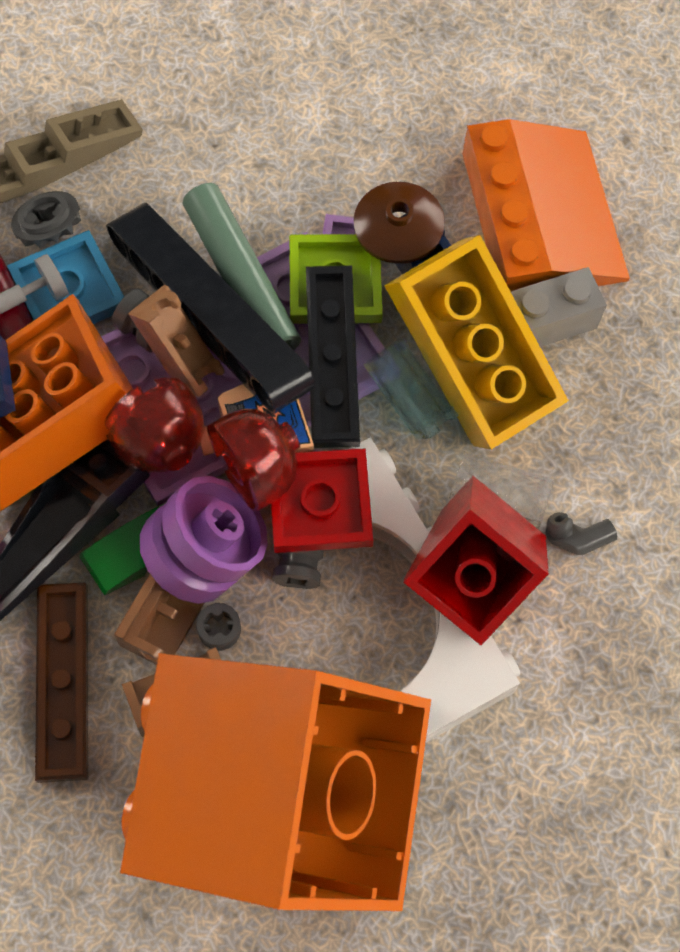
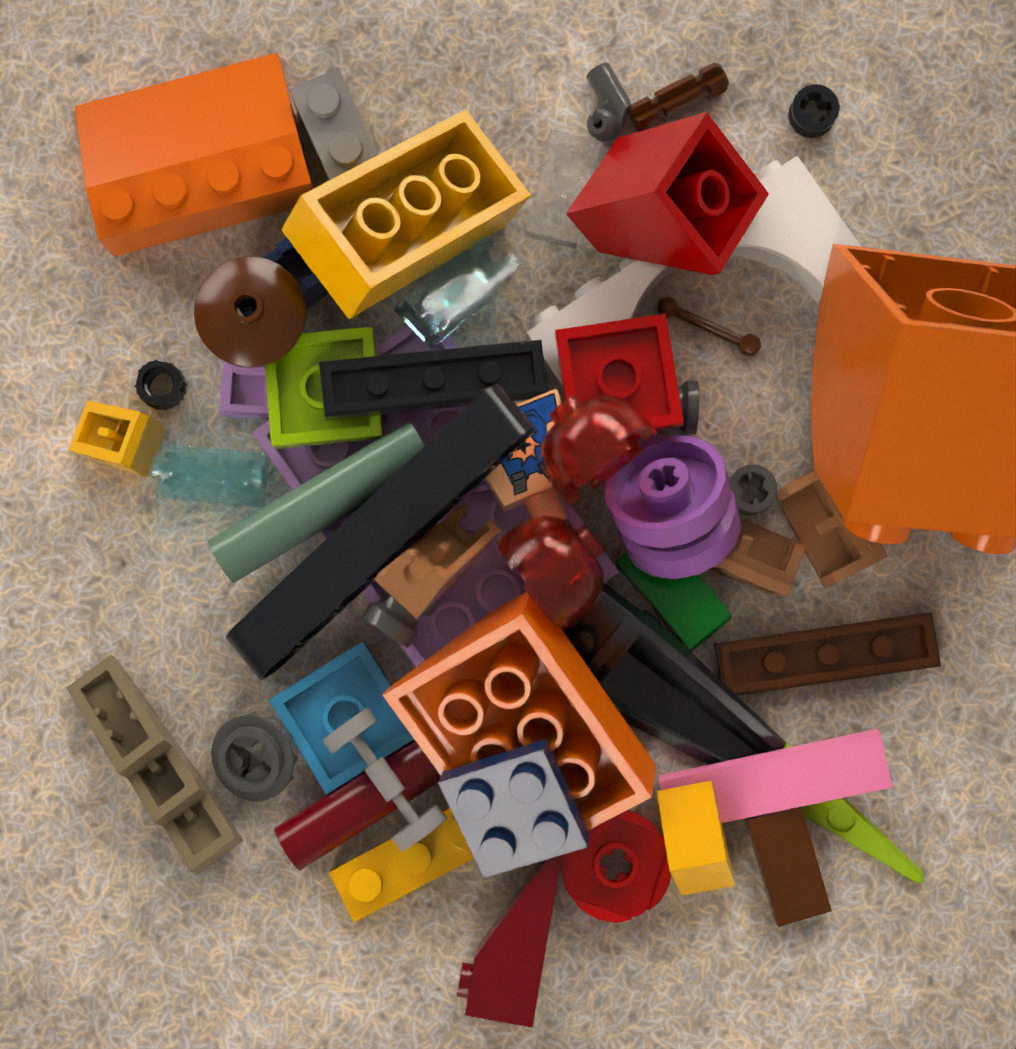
camera: 90 degrees left, 15 degrees up
(277, 204) = (211, 475): none -> clear light blue hinge
(309, 144) = (117, 437): none -> yellow slope
(352, 640) = (748, 344): none -> reddish brown hinge
(358, 165) = (151, 371): none -> black axle
(580, 728) = (825, 100): none -> black bush
(584, 597) = (678, 97): none -> reddish brown axle

